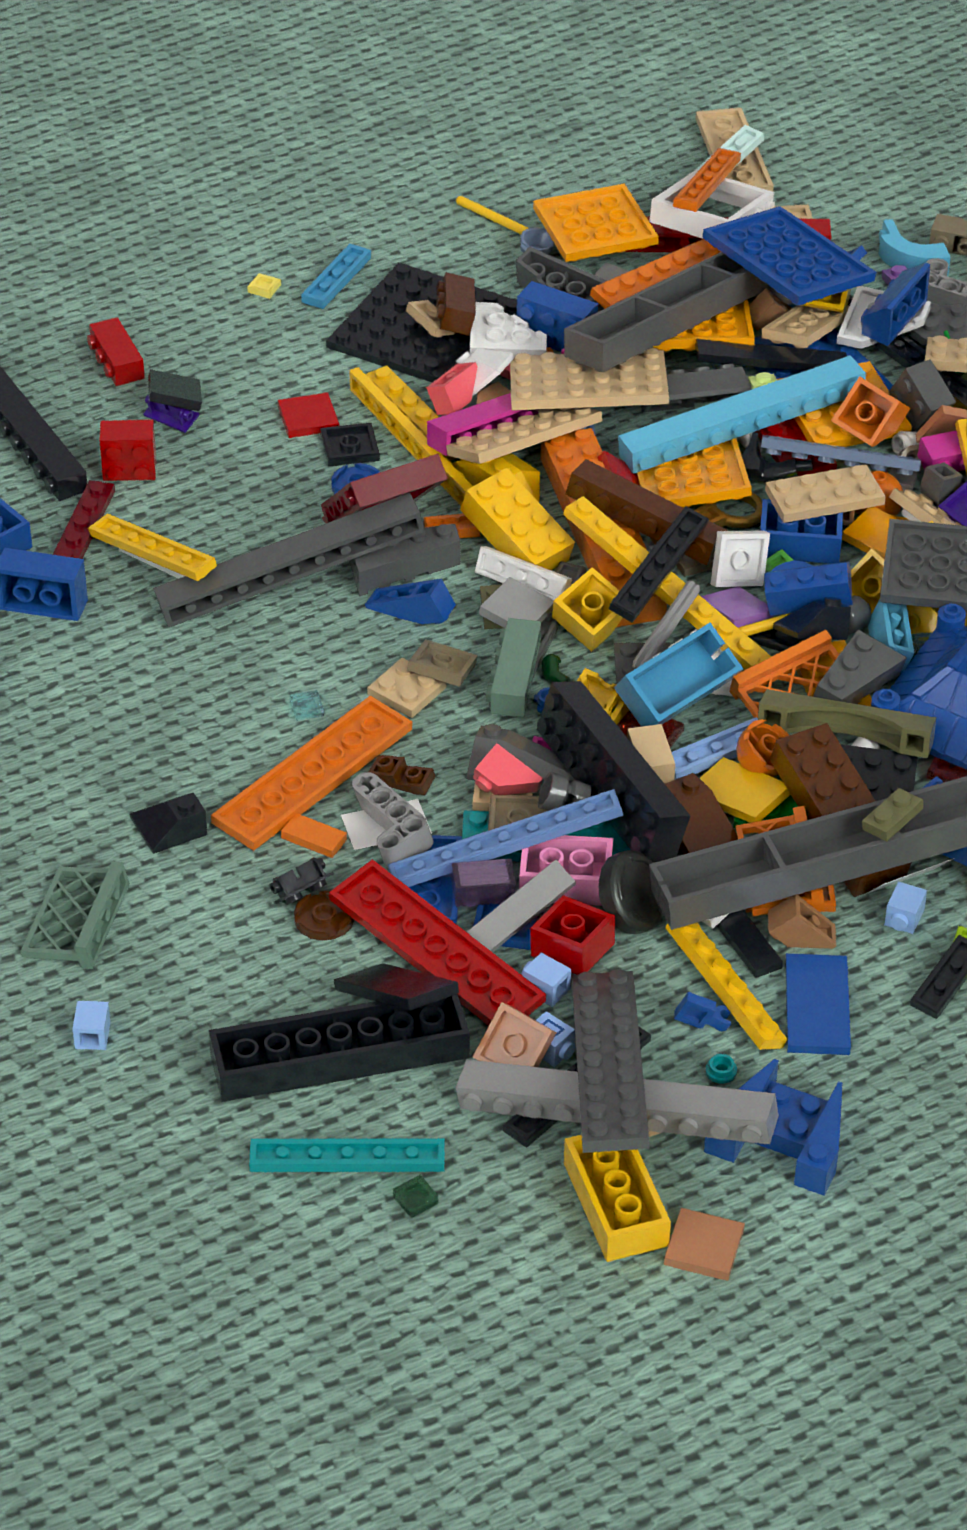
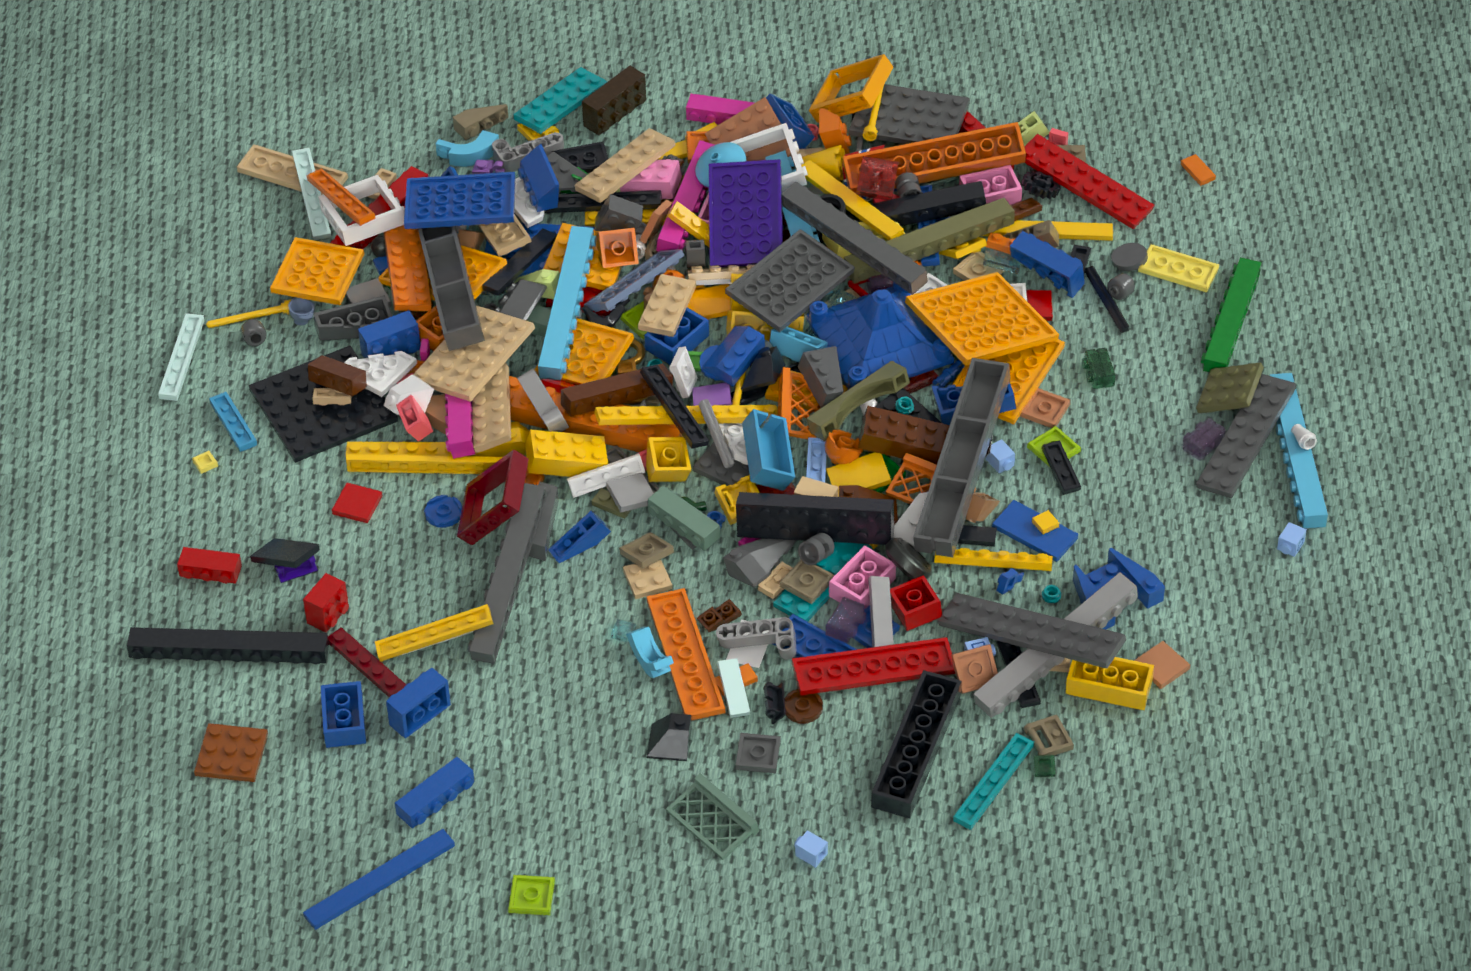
camera: 55 degrees left, 5 degrees up
(210, 907) = (758, 753): none -> dark grey plate
(284, 736) = (647, 652): none -> medium azure arch
(291, 835) = (733, 688): none -> light aqua tile
(350, 444) = (403, 497): black tile -> none
(392, 201) = (181, 357): none -> light aqua plate
(396, 986) = (901, 695): black tile -> none
(474, 230) = (253, 332): none -> dark grey head
(476, 1184) = (1054, 734): none -> dark tan plate
(505, 774) = (772, 566): coral slope -> none
(508, 838) = (829, 590): medium blue tile -> none
(549, 977) = (933, 629): light blue brick -> none
(550, 480) = (542, 401): none -> light grey beam
(834, 1002) = (1045, 522): none -> yellow tile
(883, 763) = (904, 401): none -> teal plate
(892, 814) = (972, 414): olive plate -> none

